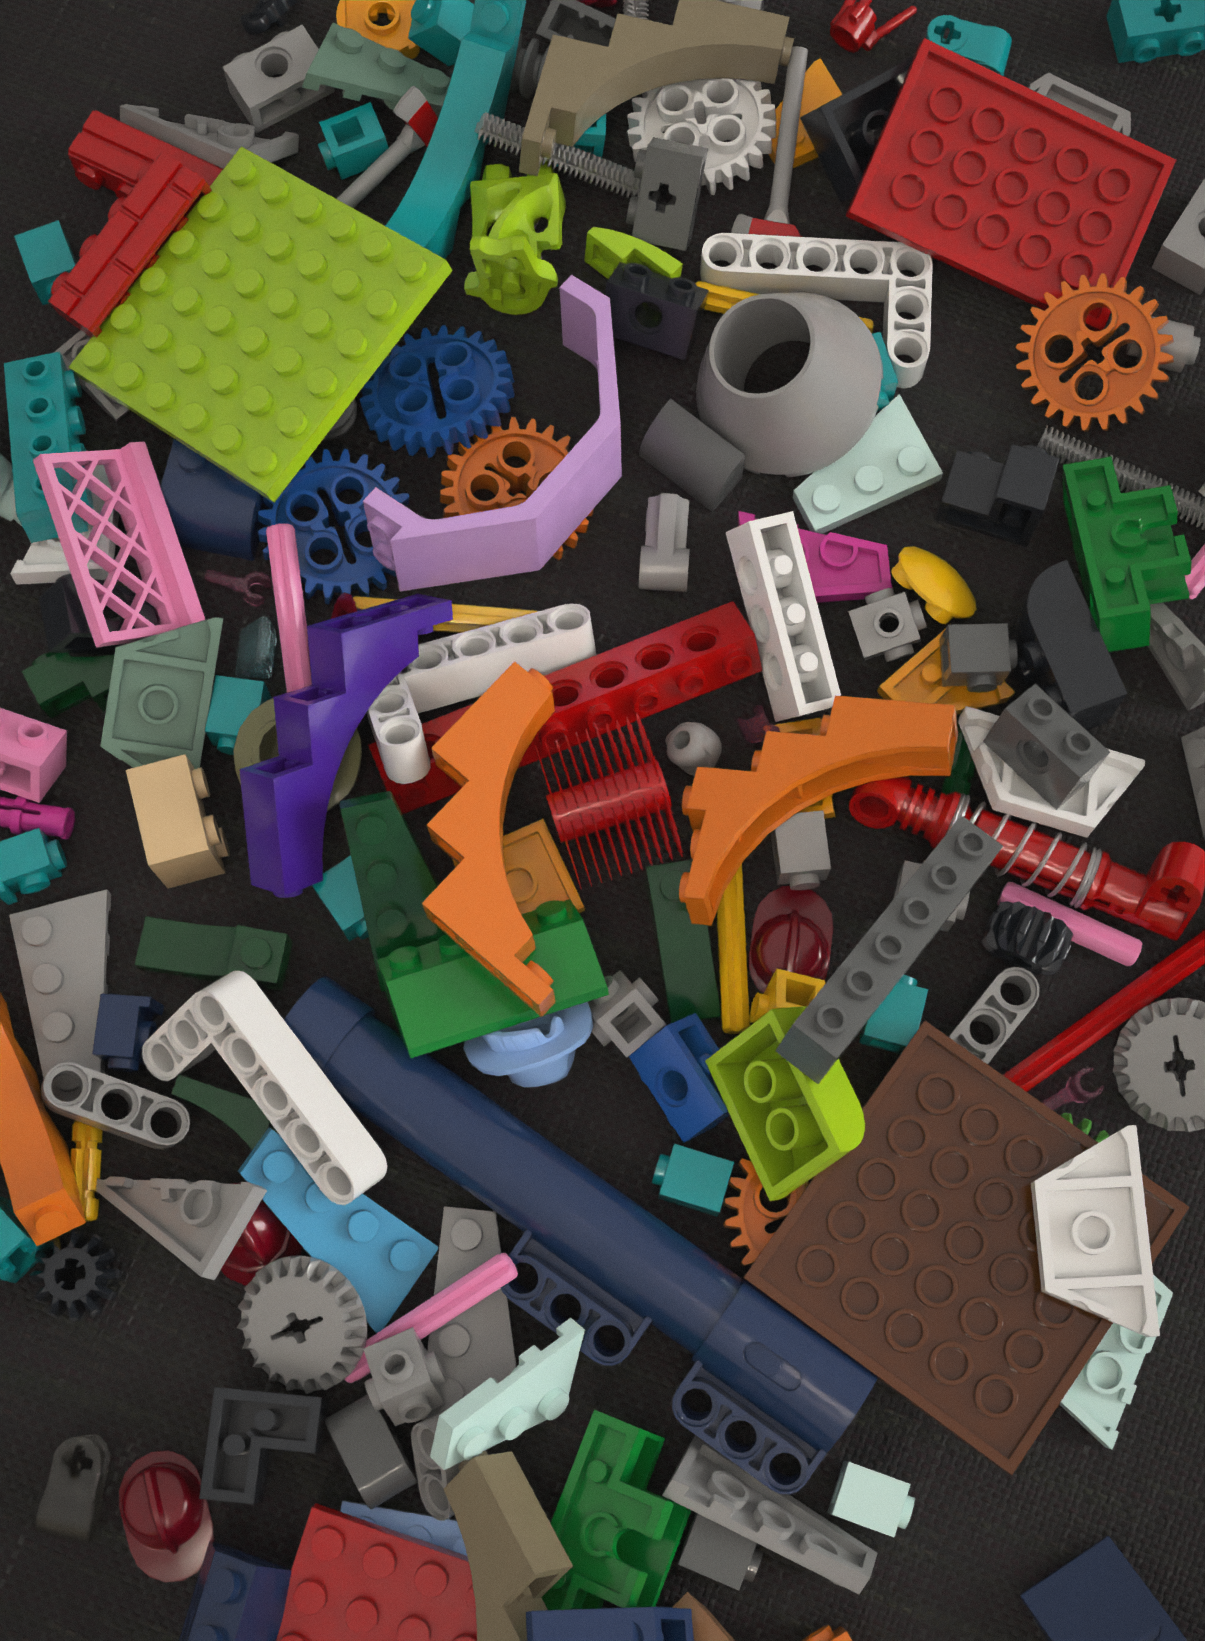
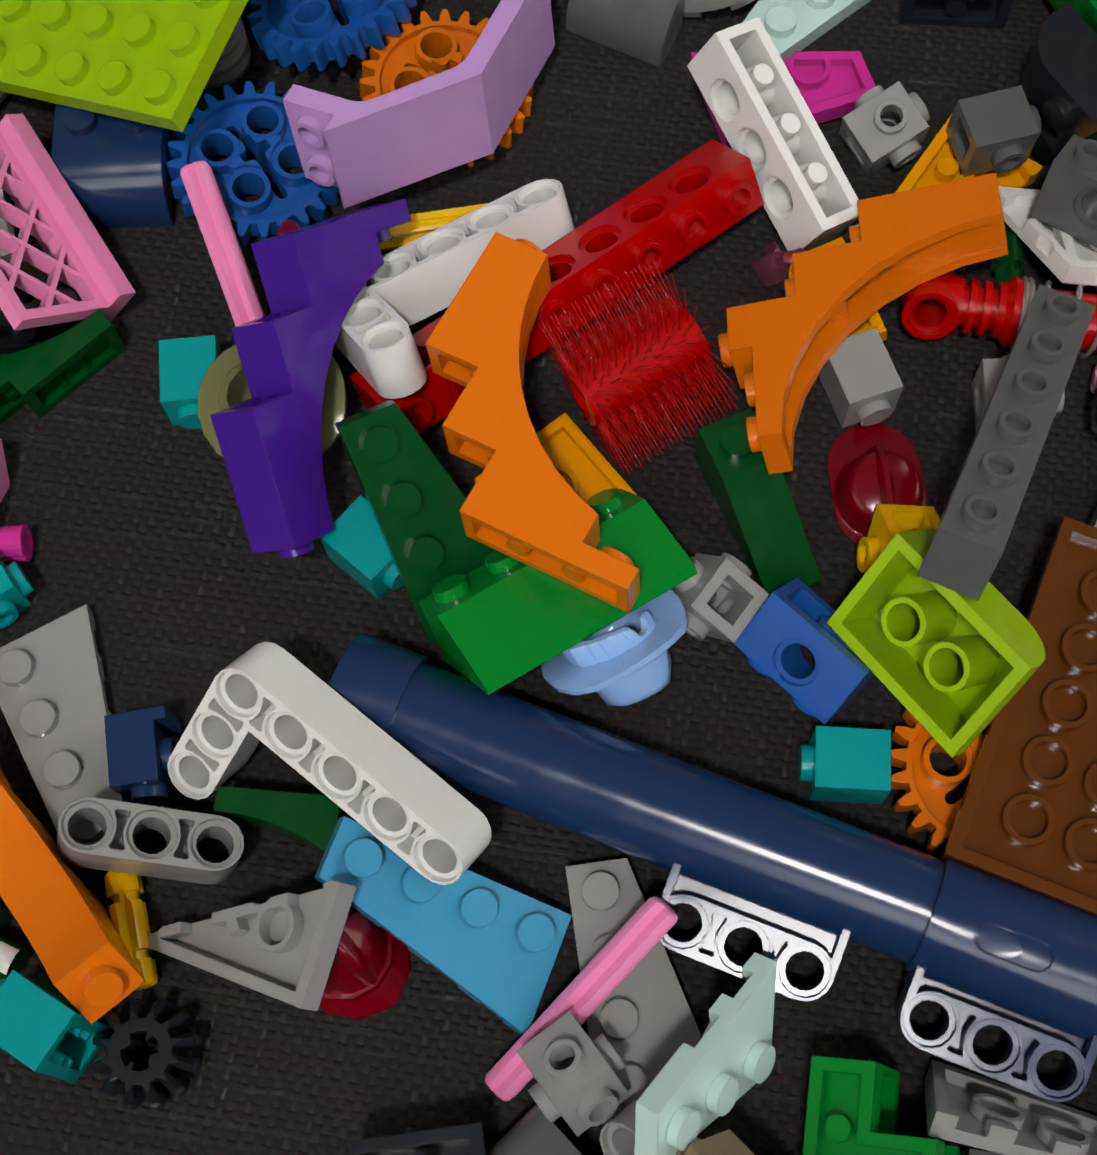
camera: 10 degrees left, 5 degrees down
(162, 694) = (105, 384): sand green wing -> none
(173, 824) = (156, 518): tan brick -> none
(213, 951) = (204, 645): dark green slope -> none
(241, 584) = (176, 240): clear pink hand -> none
(257, 649) = (198, 307): clear light blue slope -> none
(309, 1290) = (433, 999): light grey gear -> none
(665, 555) = (623, 116): light grey piece -> none
(693, 746) = (712, 295): light grey piece -> none
(733, 958) = (820, 518): yellow axle -> none
(896, 1018) = (1030, 536): teal brick -> none
(936, 583) = (941, 80): yellow dish -> none

